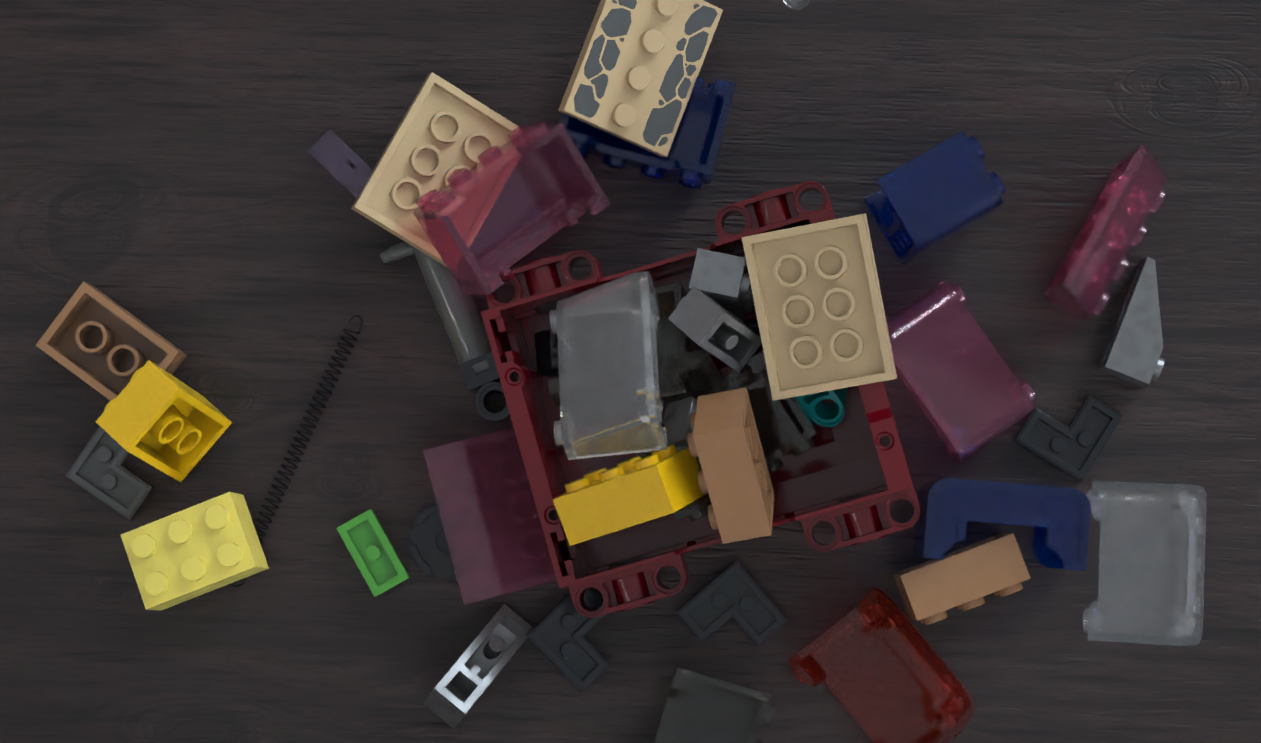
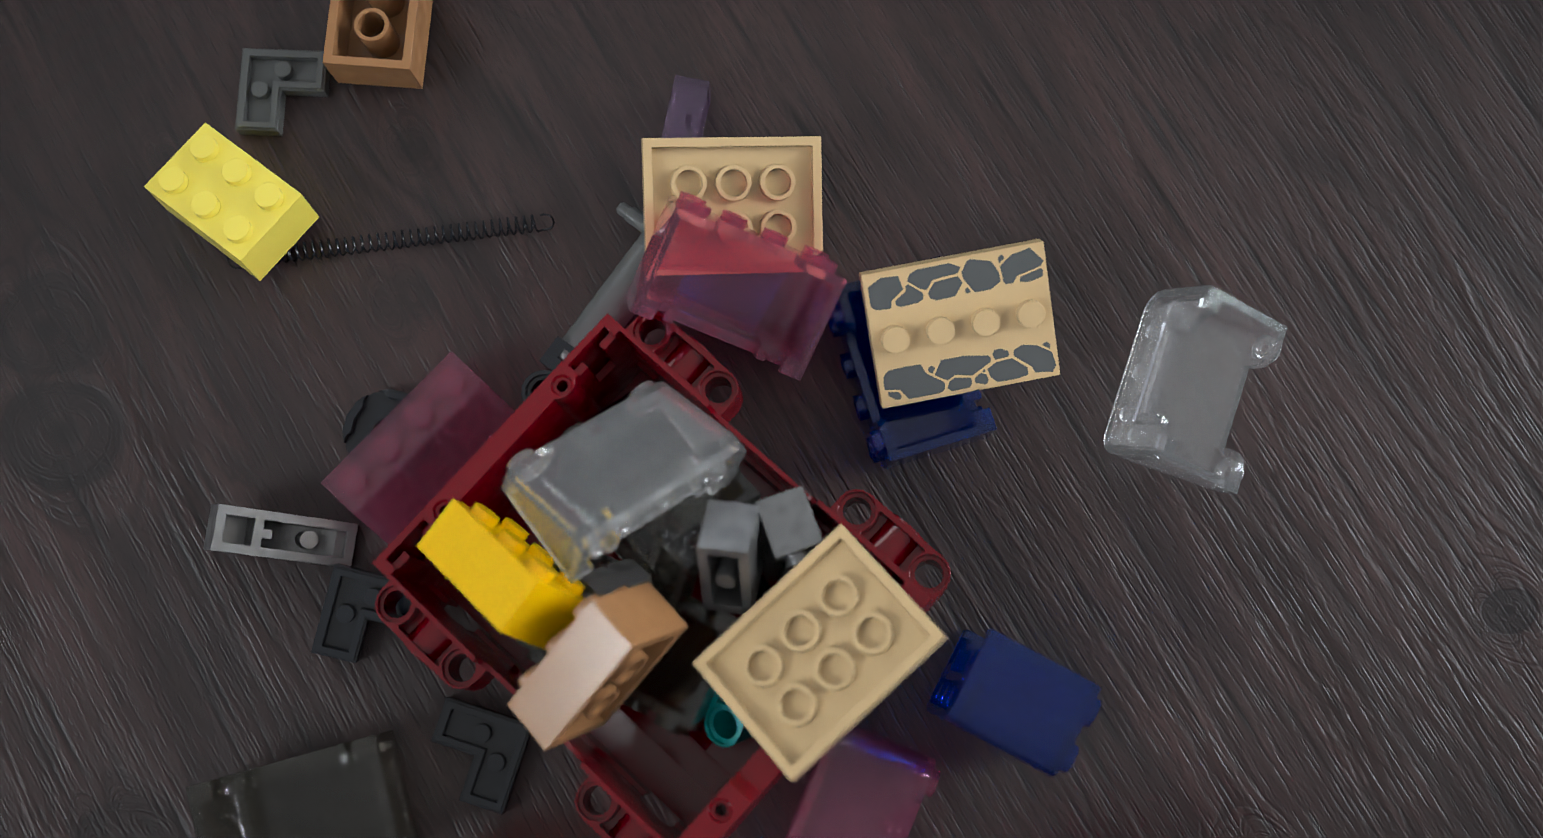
camera: 55 degrees right, 5 degrees down
(163, 421) = (331, 91): yellow brick -> none
(373, 552) = (333, 369): bright green plate -> none

